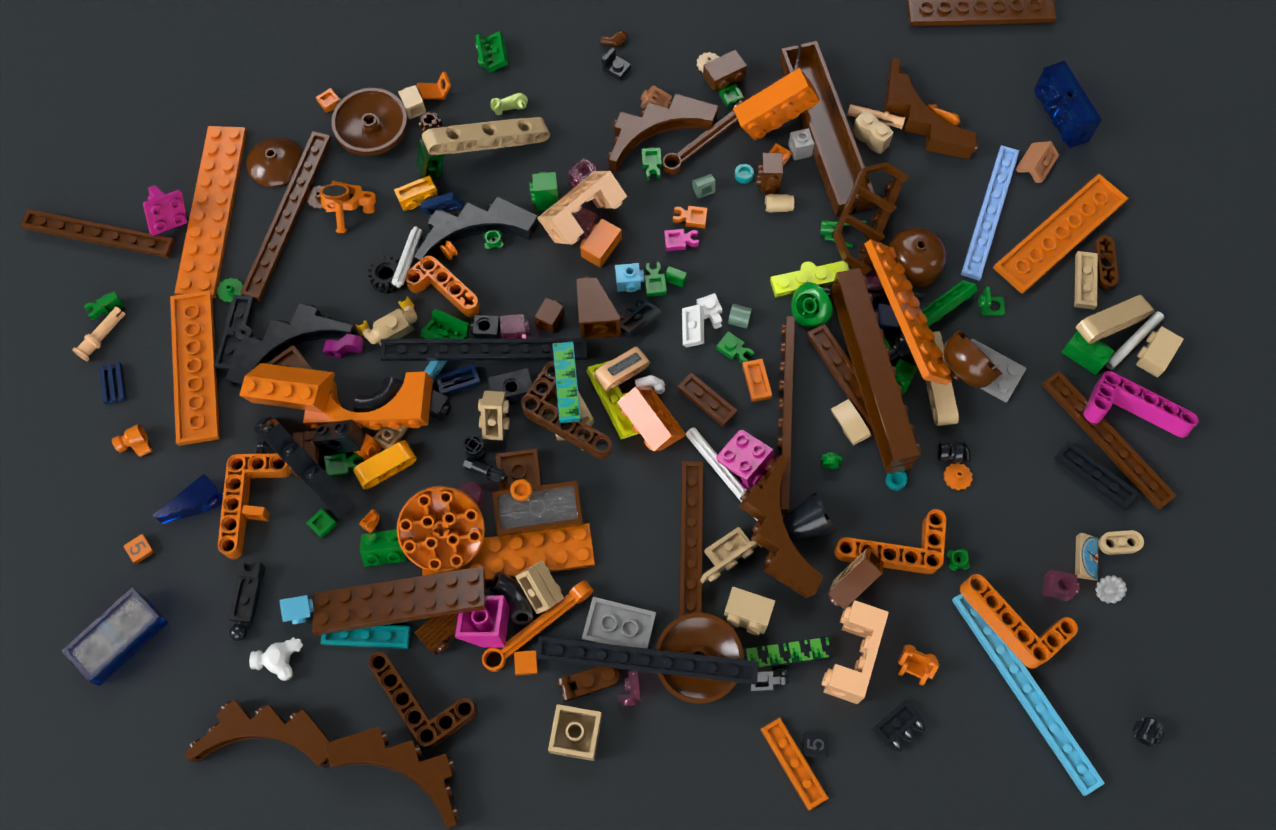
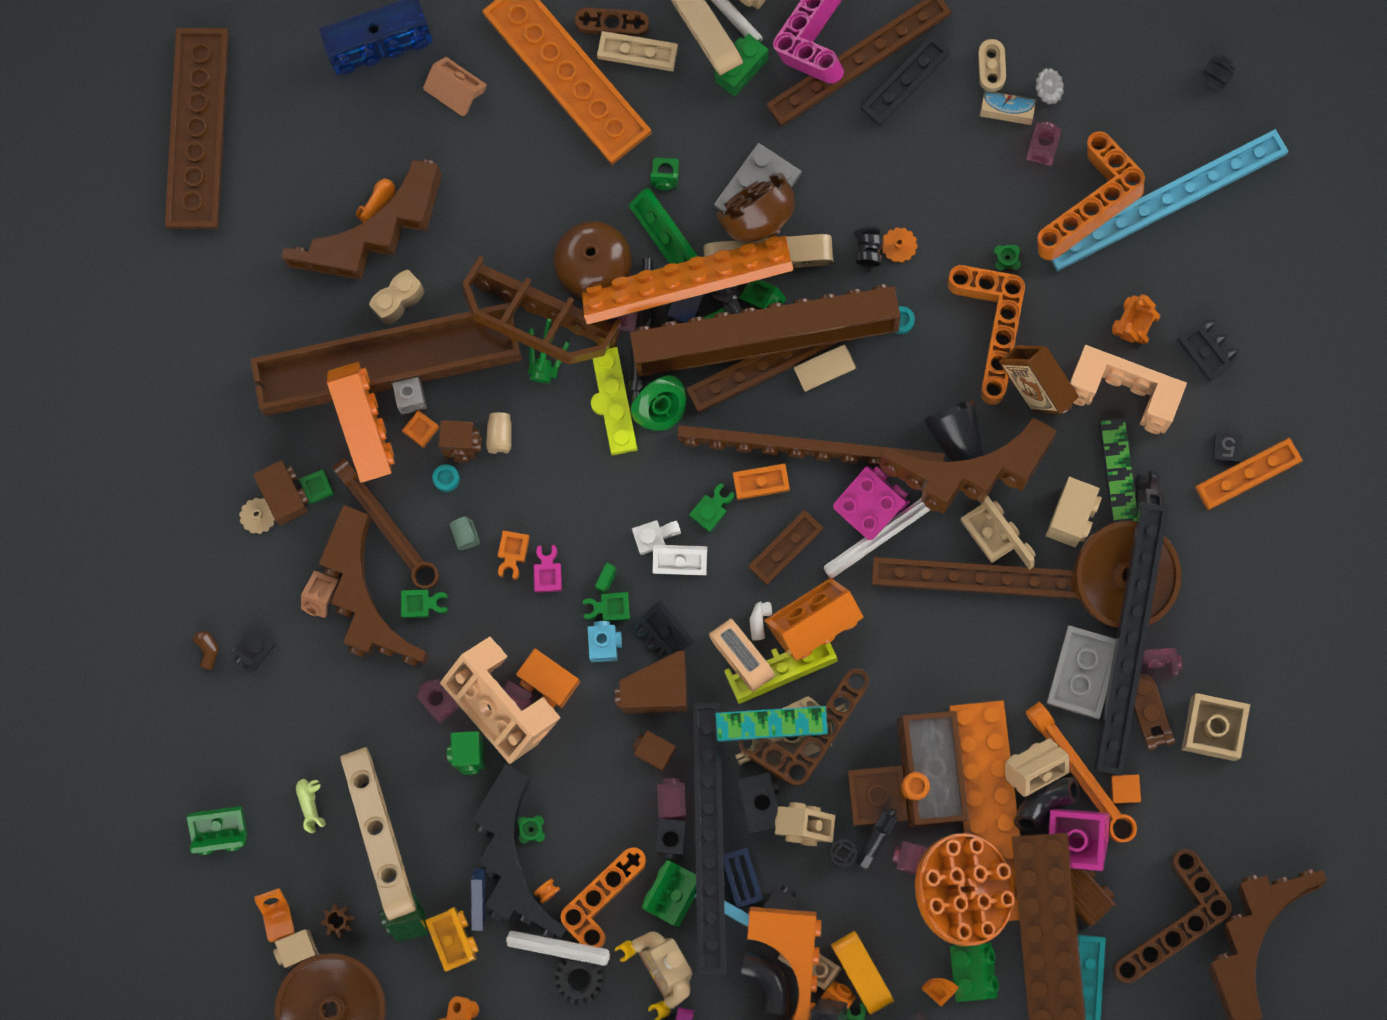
camera: 80 degrees left, 10 degrees up
(739, 316) = (665, 497): sand green brick -> none
(831, 460) = (876, 396): green plate -> none
(886, 118) = (370, 285): light nougat pin -> none
(990, 213) = (526, 157): light blue tile -> none

